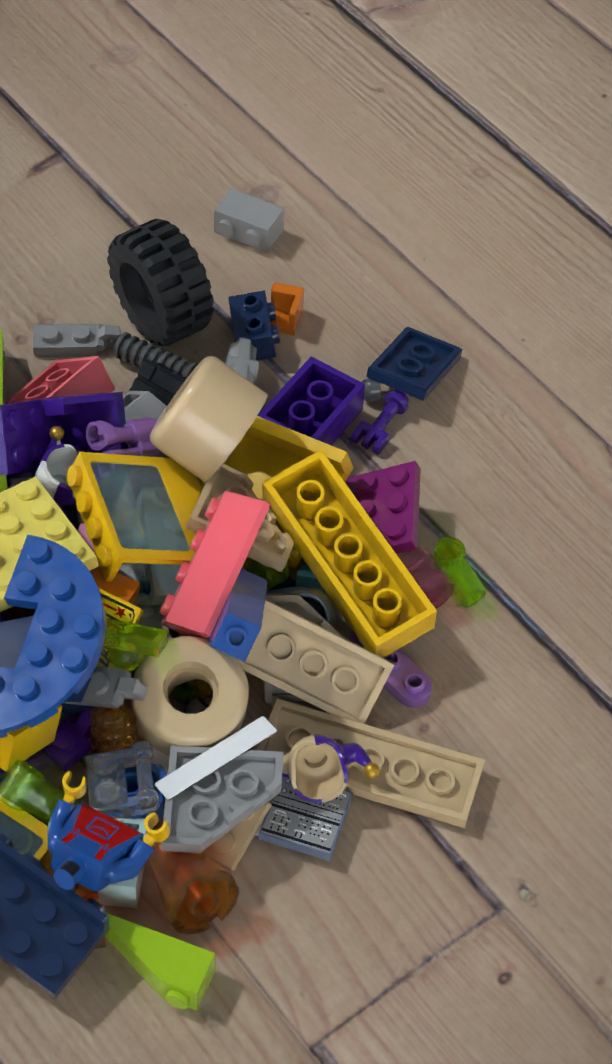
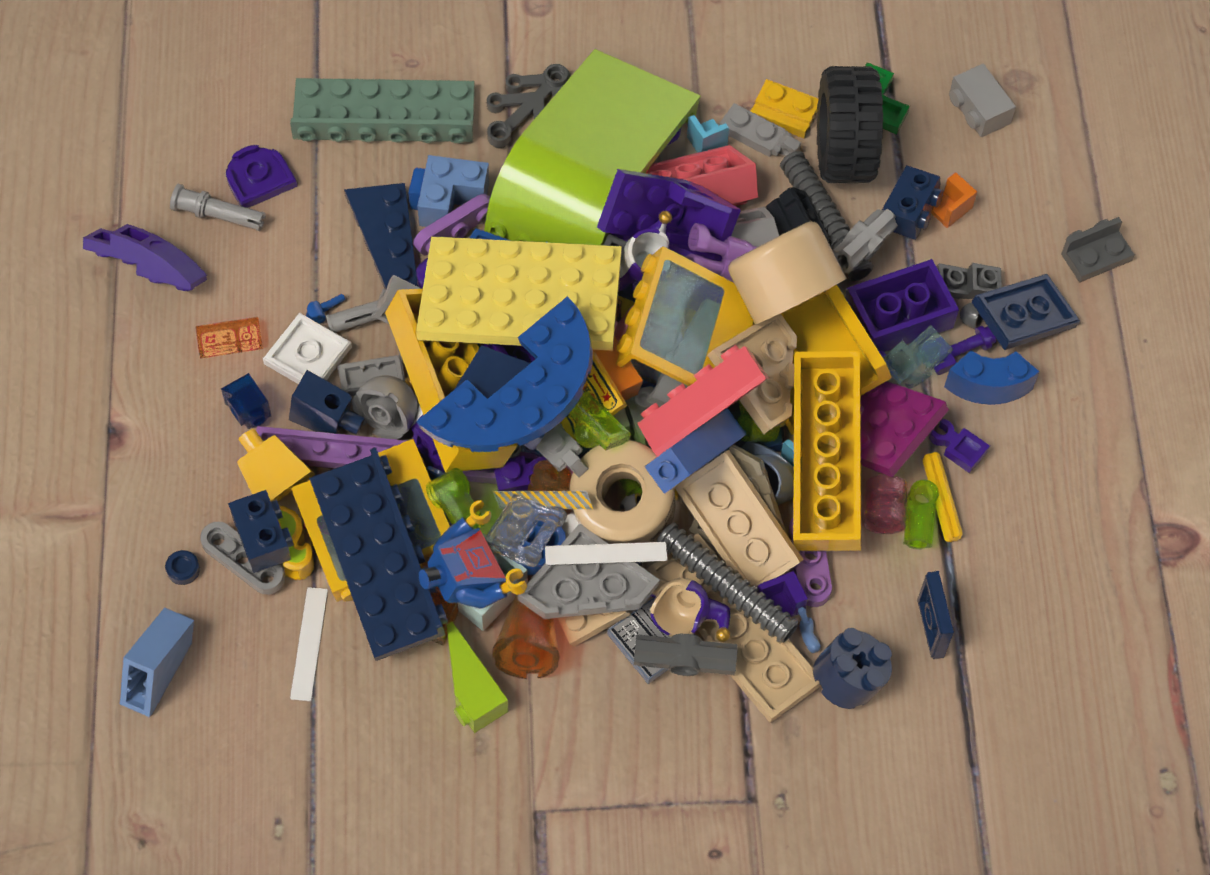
camera: 35 degrees right, 10 degrees up
(28, 363) = (706, 135): none -> medium azure panel
(83, 306) = (786, 107): none -> yellow plate
(139, 731) = (561, 499): none -> sticker
(343, 723) = (728, 583): none -> dark grey piece
(350, 809) = (685, 654): none -> dark grey piece
(354, 360) = (967, 283): none -> dark grey slope
(359, 440) = (913, 363): none -> clear light blue brick
(394, 708) = (785, 592): none -> dark purple panel
(430, 430) = (990, 379): none -> blue brick
(431, 289) = (1096, 249): none -> dark grey bracket
(435, 729) = (807, 632): none -> medium blue piece
(449, 499) = (962, 448): none -> dark purple plate
(479, 561) = (945, 505): none -> yellow axle
(506, 732) = (853, 668): none -> dark blue brick
(540, 644) = (935, 615): none -> dark blue tile

